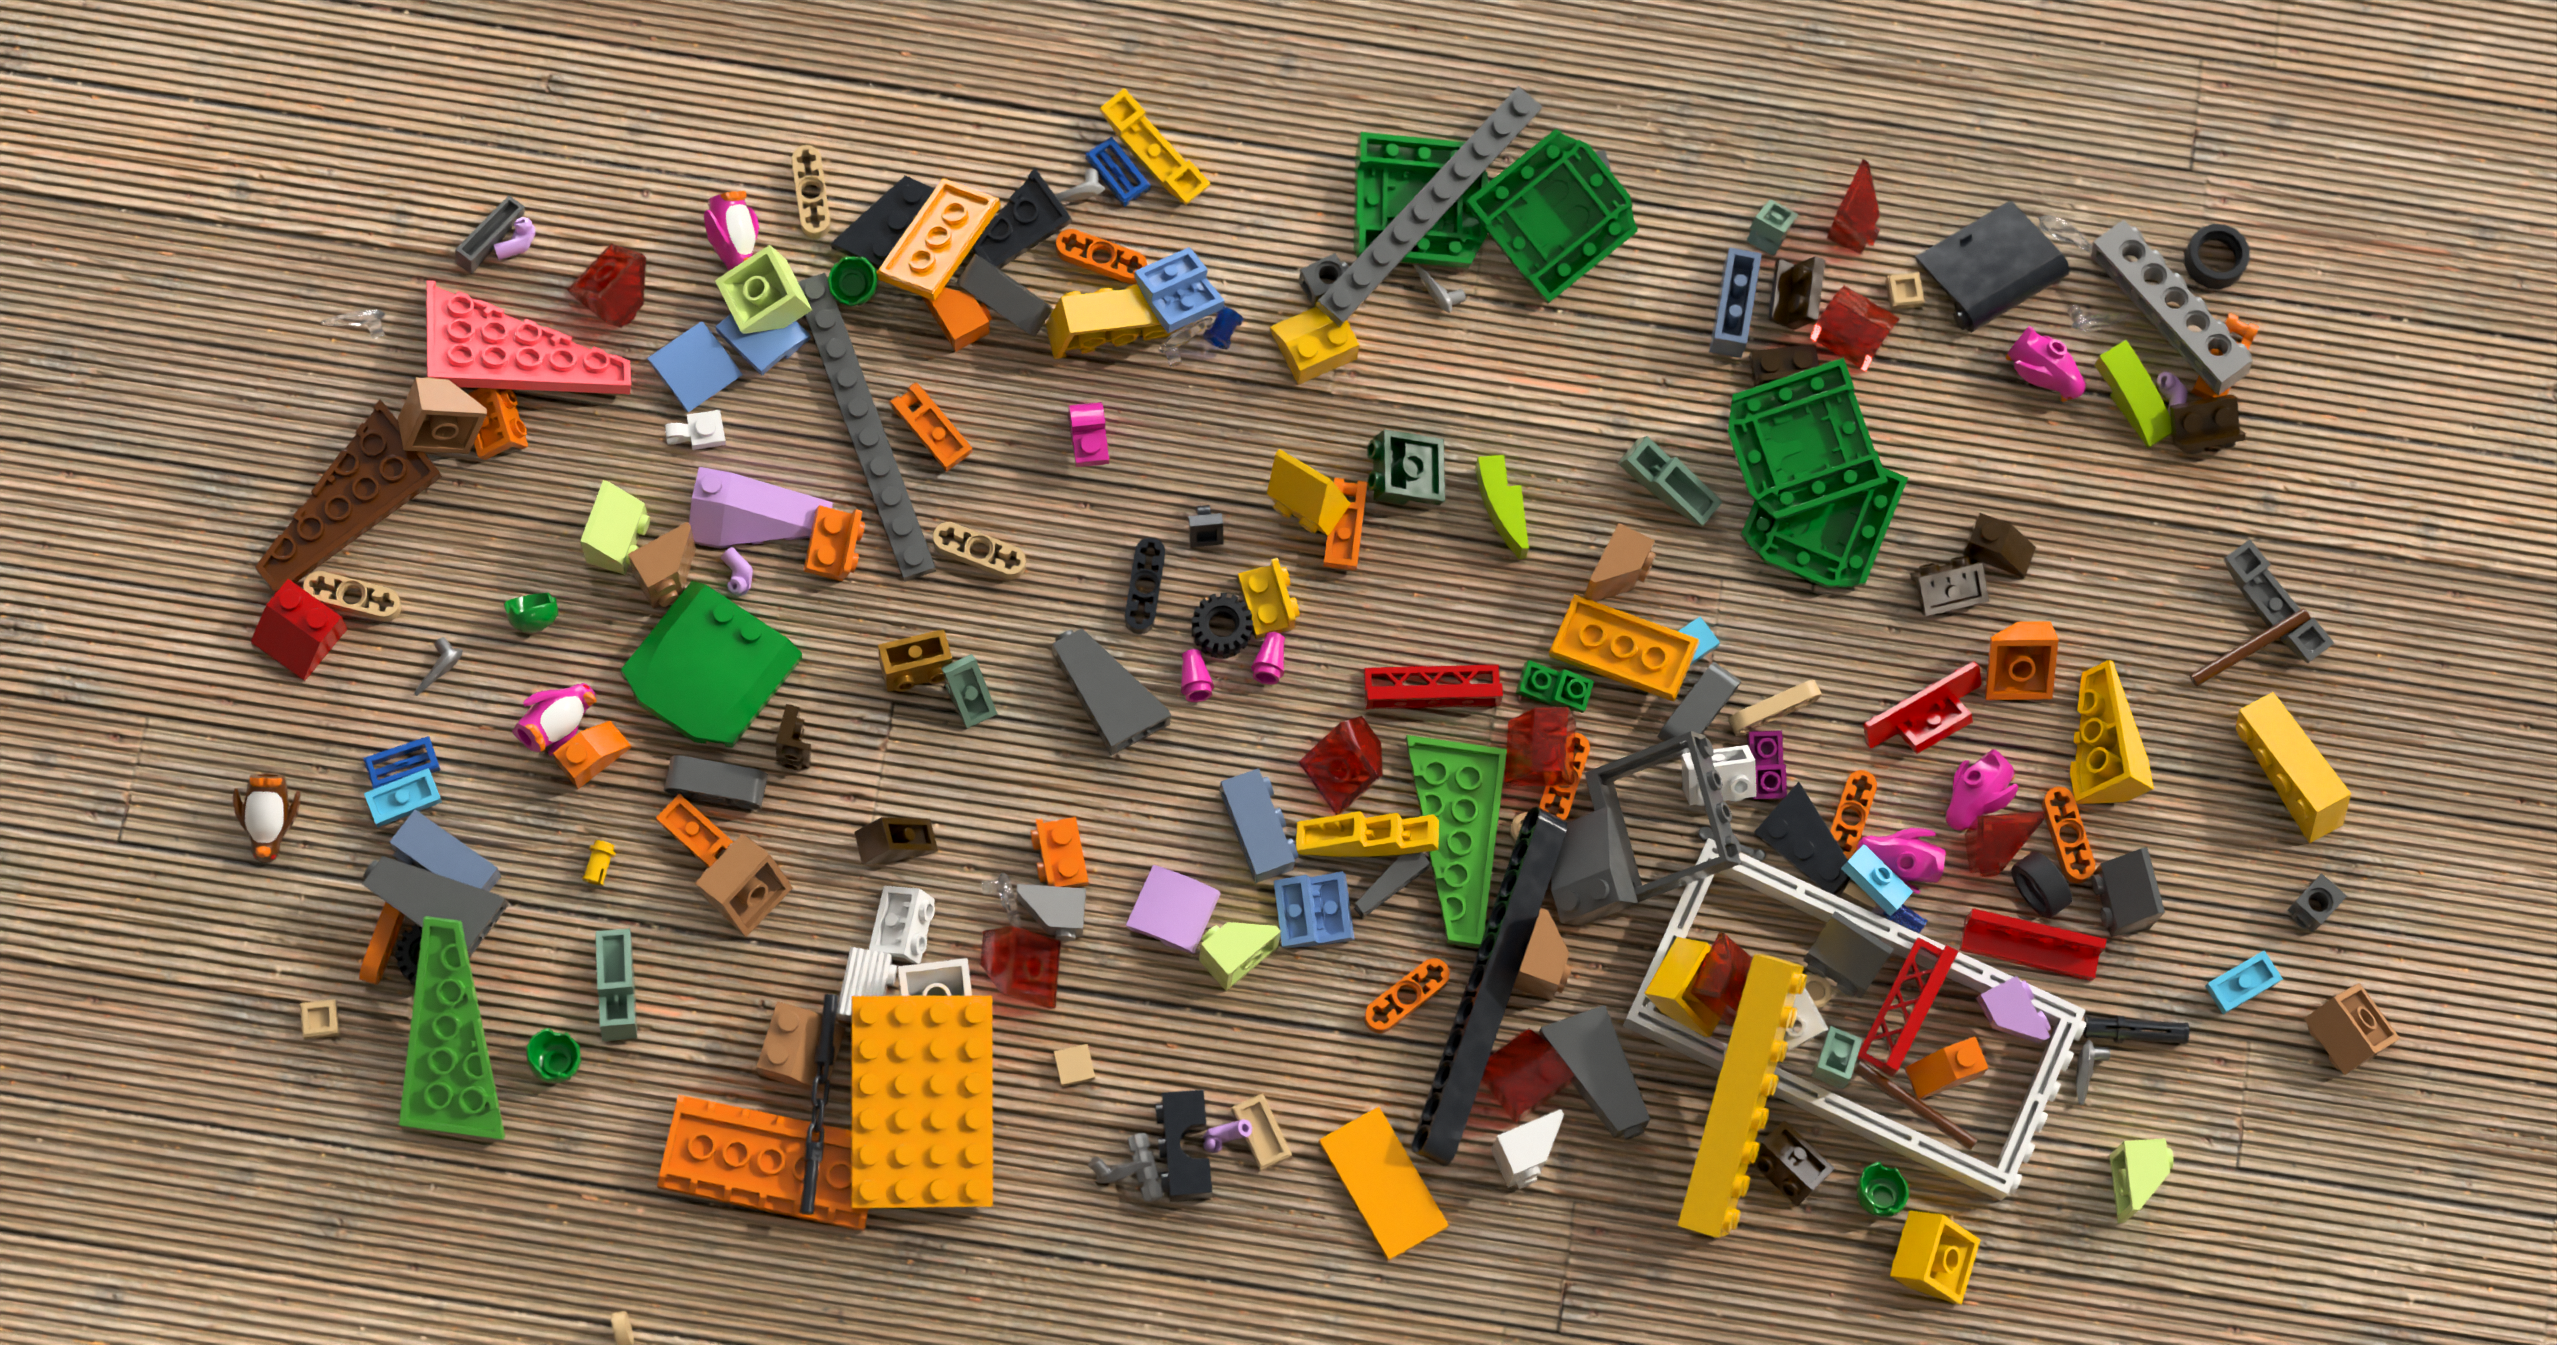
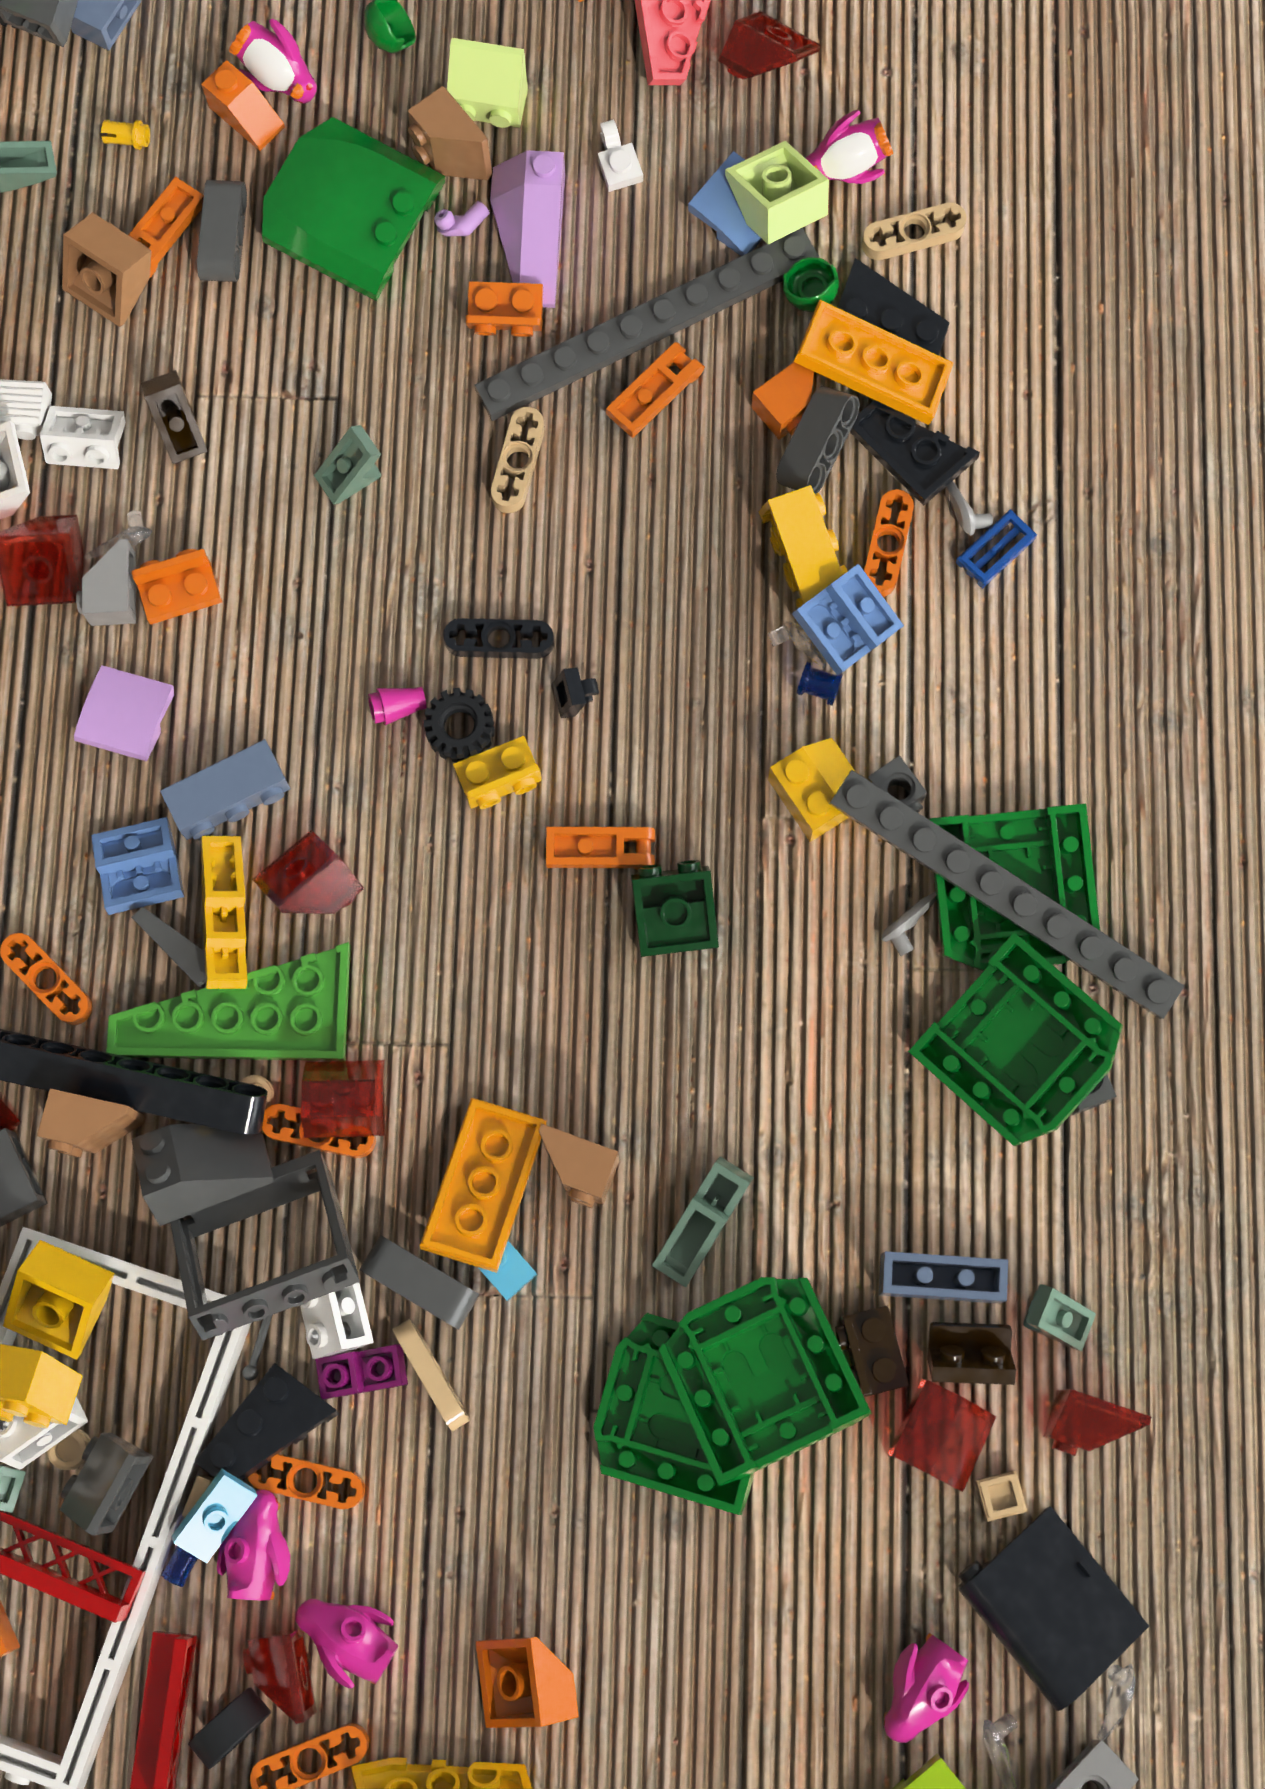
camera: 95 degrees right, 5 degrees up
(694, 366) = (689, 143): medium blue slope -> none
(789, 745) = (268, 286): dark brown bracket -> none
(914, 660) = (373, 402): pearl gold brick -> none
(1088, 434) = (669, 546): dark pink brick -> none
(1109, 694) = (365, 610): dark grey slope -> none
(1152, 149) = (1030, 580): yellow slope -> none
(1236, 950) = (69, 775): yellowish green slope -> none
(1269, 662) = (425, 782): dark pink cone -> none
(1305, 494) = (619, 793): yellow slope -> none
(1432, 694) = (400, 970): red fence -> none
(1503, 503) = (645, 1024): lime slope -> none
(1554, 687) = (430, 1109): green slope -> none
(1723, 978) = (63, 1332): clear red slope -> none
(1928, 714) = (441, 1570): red bracket -> none
(1950, 585) = (615, 1583): bracket -> none
(1999, 545) = (673, 1644): dark brown slope -> none
(2012, 1012) = (54, 1698): lavender slope -> none

